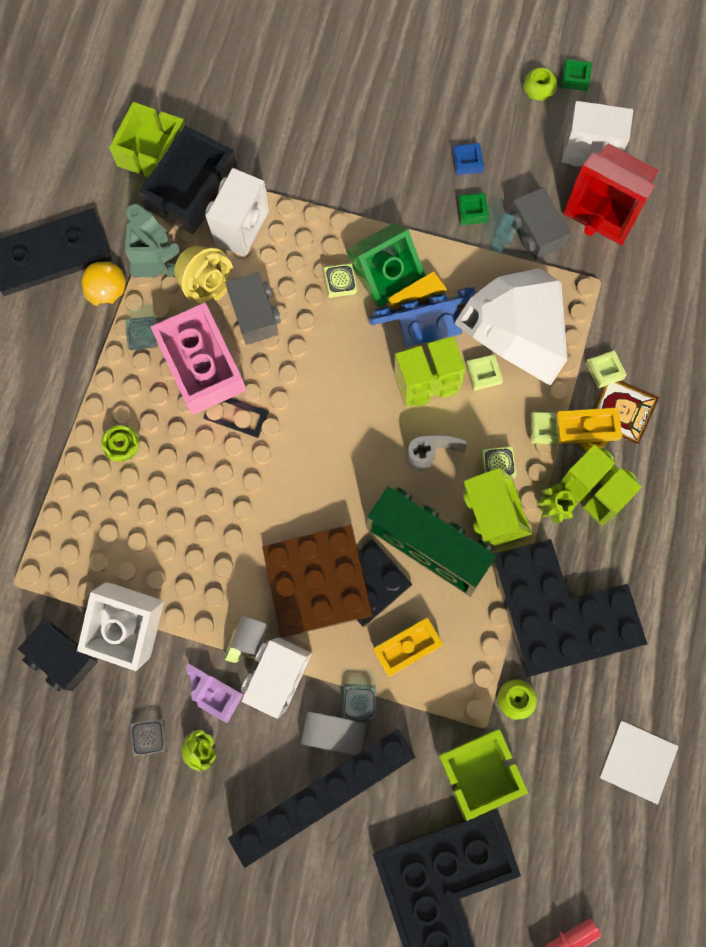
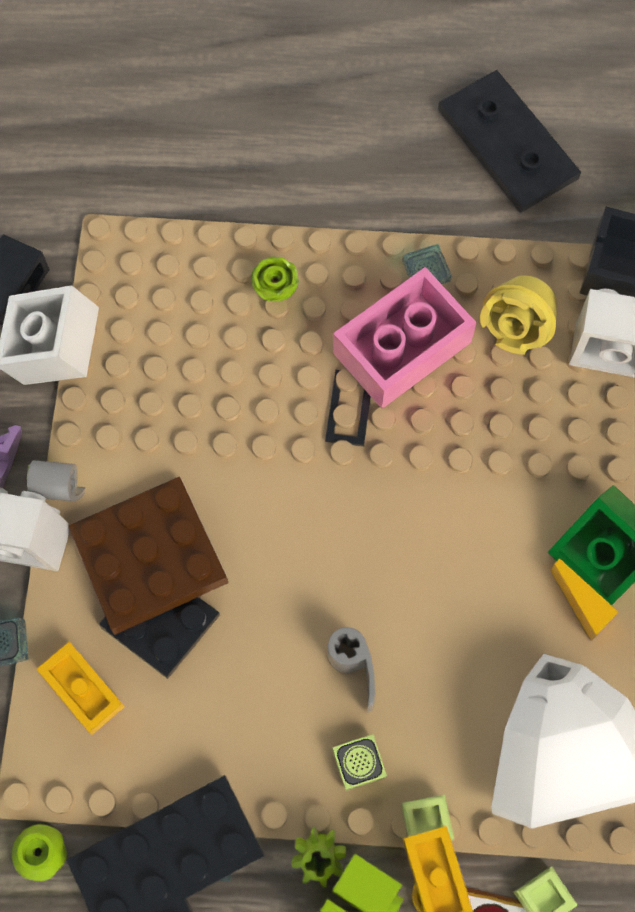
camera: 75 degrees right, 5 degrees down
(103, 283) = (484, 209): yellow hair -> none
(147, 245) = (538, 236): sand green piece -> none
(252, 308) = (494, 387): dark grey brick -> none
(340, 280) = (569, 491): tile -> none
(423, 380) = (463, 646): lime piece -> none
(427, 320) = (543, 617): blue bracket -> none
(429, 540) = (219, 683): dark green brick -> none
(484, 372) = (488, 715): yellowish green tile -> none
(496, 507) = (284, 764): lime piece -> none

